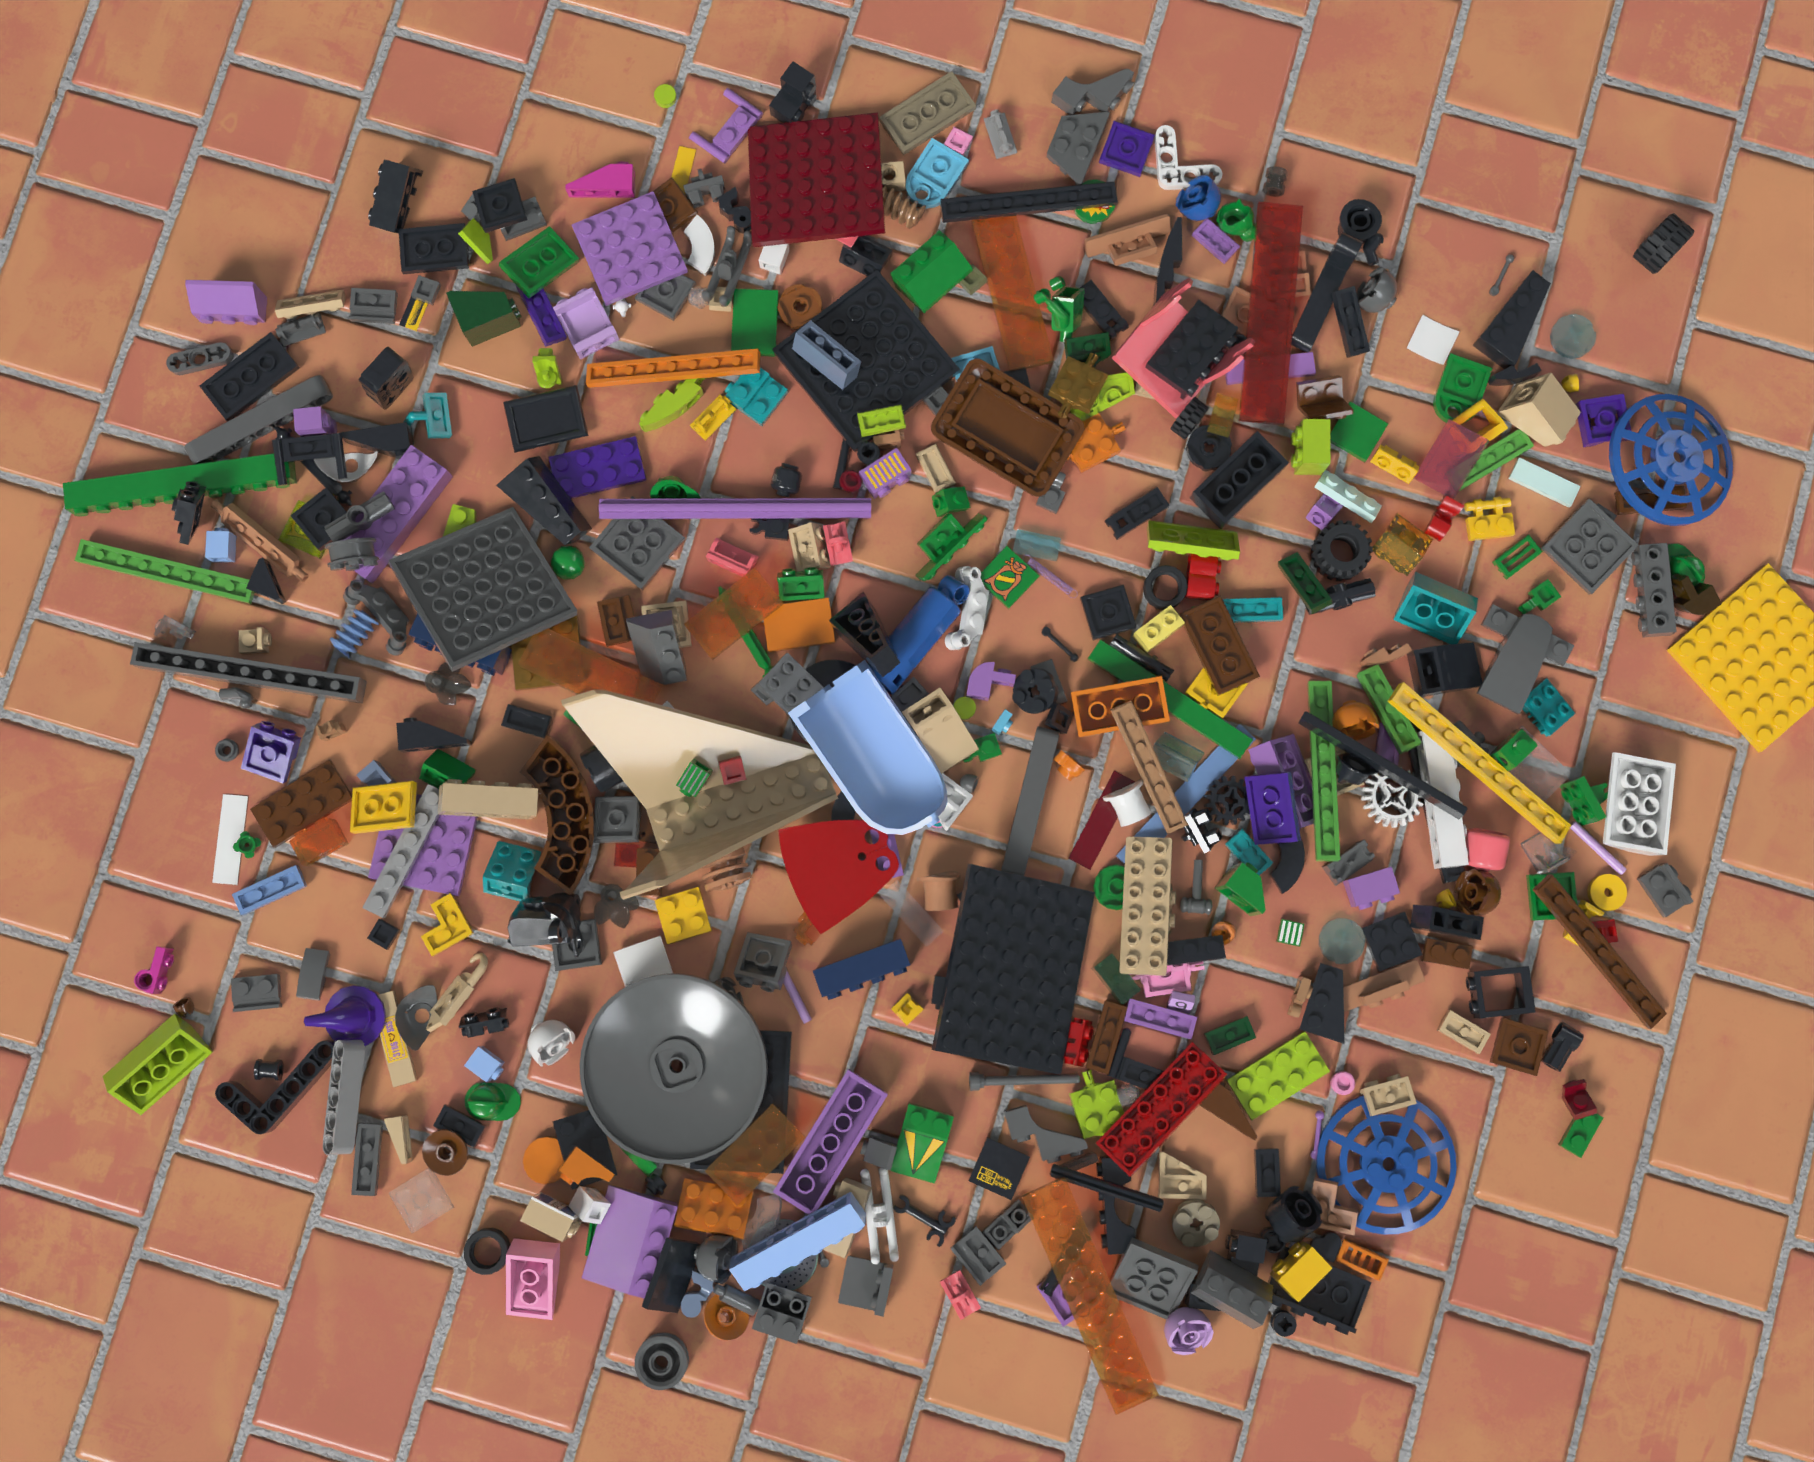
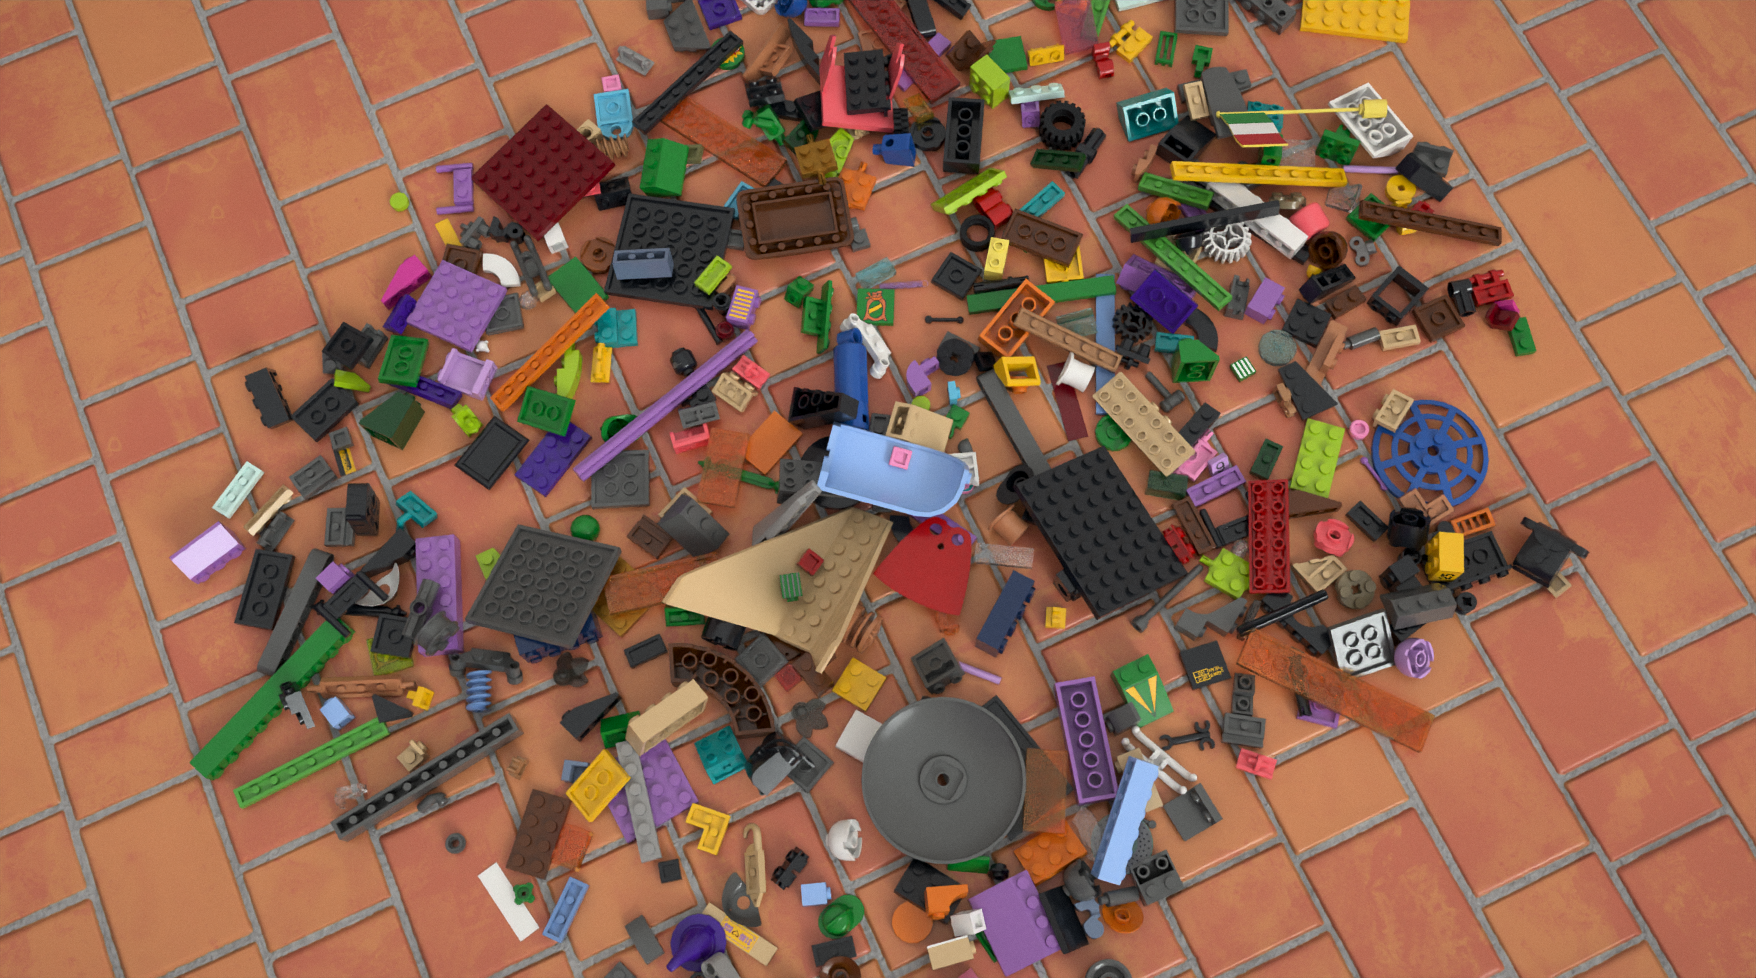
camera: 35 degrees left, 10 degrees down
(185, 368) = (214, 622): dark grey beam -> none
(270, 751) = (487, 817): plate -> none
(299, 261) = (238, 490): none -> light aqua plate
(301, 595) = (421, 698): none -> yellow tile
(350, 373) = (338, 530): none -> dark grey plate
(545, 500) = (534, 500): black wedge -> none
(573, 212) = (398, 317): none -> dark purple bracket
(624, 421) = (546, 411): none -> green tile
(745, 708) = (786, 514): none -> light grey wedge
(756, 544) = (699, 414): none -> dark grey hinge
(795, 95) = (484, 134): black brick -> none
(801, 584) = (750, 416): green bracket -> none
(896, 745) = (900, 457): none -> bright pink tile
(927, 113) = (578, 82): dark tan plate -> none
(935, 468) = (771, 280): tan tile -> none
(985, 854) = (1005, 492): none -> black piece
(1090, 274) = (764, 91): none -> black plate
(1094, 756) = (1012, 364): none -> yellow tile
(1117, 329) = (810, 110): none -> black plate
(1137, 513) = (920, 204): black plate -> none
(1163, 440) = (897, 149): none -> blue torso
(1209, 1162) = (1324, 541): none -> coral plate
(1225, 929) = (1201, 399): orange tile -> none
(1383, 1381) = (1559, 585): none -> tan plate
(1399, 1346) = (1545, 552): none -> black piece
(1402, 545) = (1094, 95): clear yellow slope -> none
(1427, 1002) = (1362, 338): none -> dark grey cylinder
(1483, 811) = (1290, 201): none -> dark tan plate
(1492, 637) = (1196, 100): none -> tan plate
(1513, 920) = (1364, 249): none -> flat silver piece
(1514, 719) = (1258, 130): none -> flag
(1594, 1067) = (1490, 292): none -> red plate
(1596, 1093) = (1508, 305): none -> dark pink tile
(1639, 901) = (1423, 177): none -> black slope

